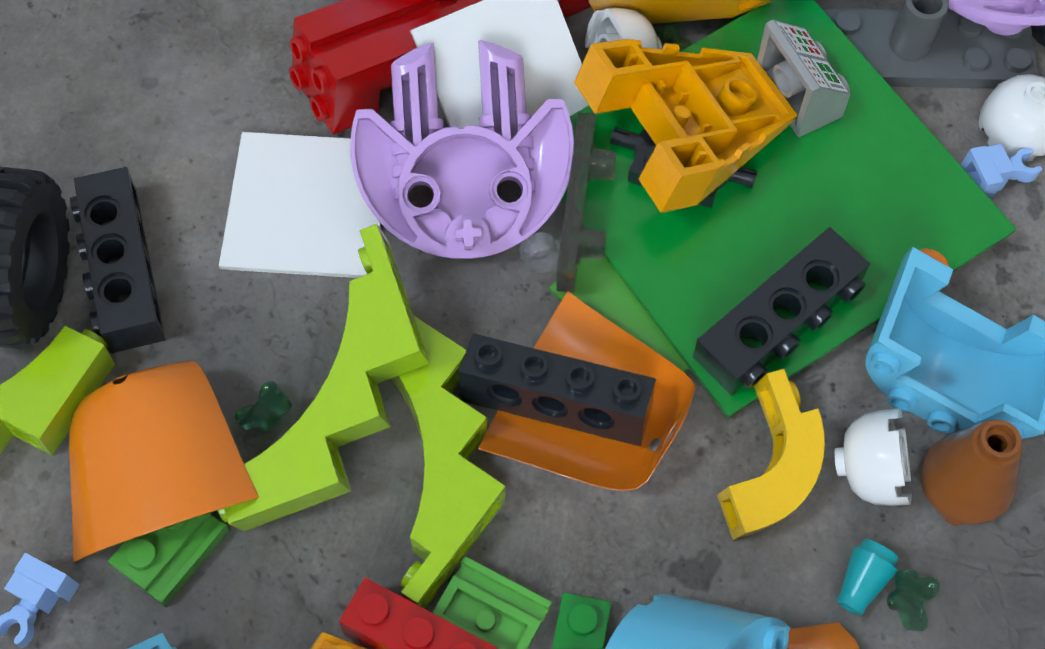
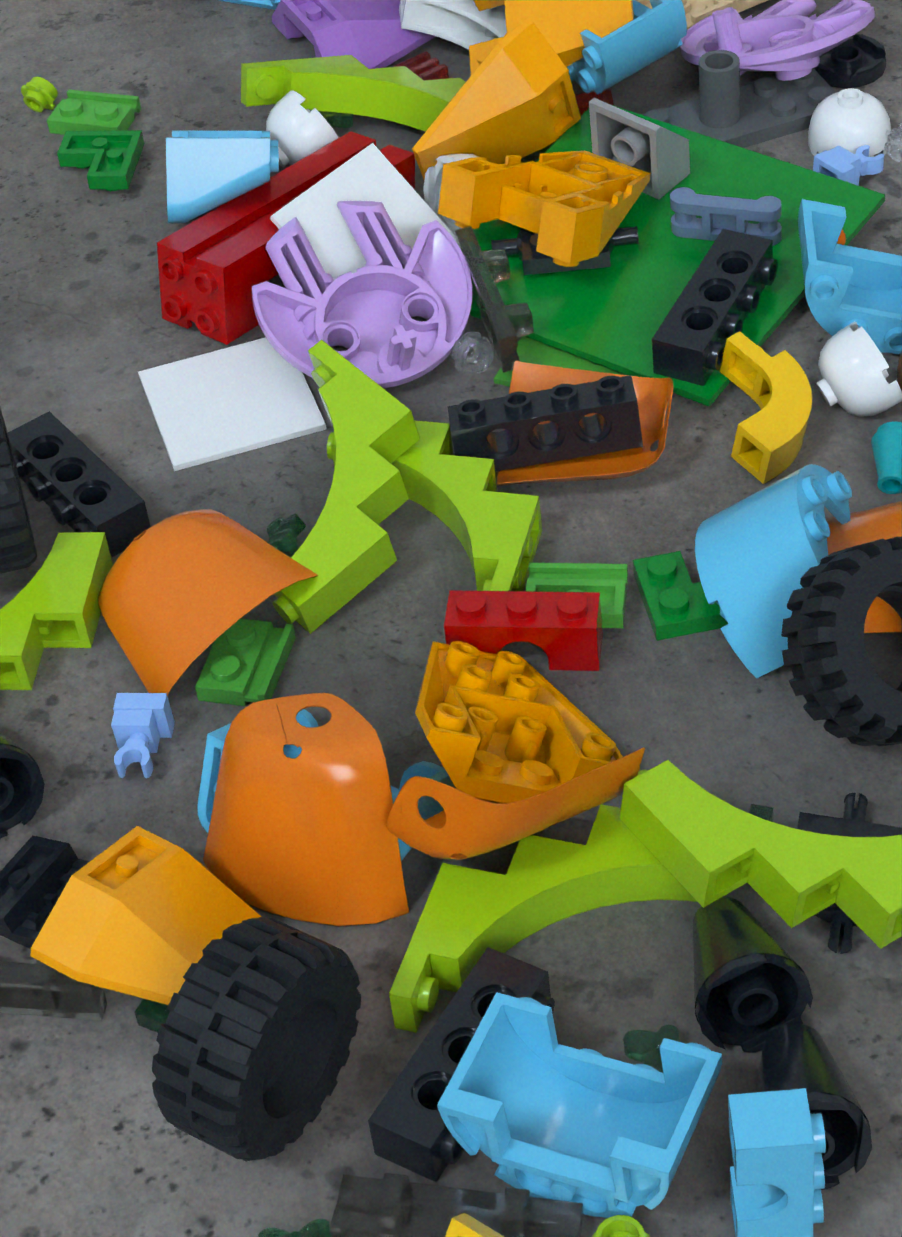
camera: 15 degrees left, 20 degrees down
(844, 201) = (724, 213): none -> sand blue plate

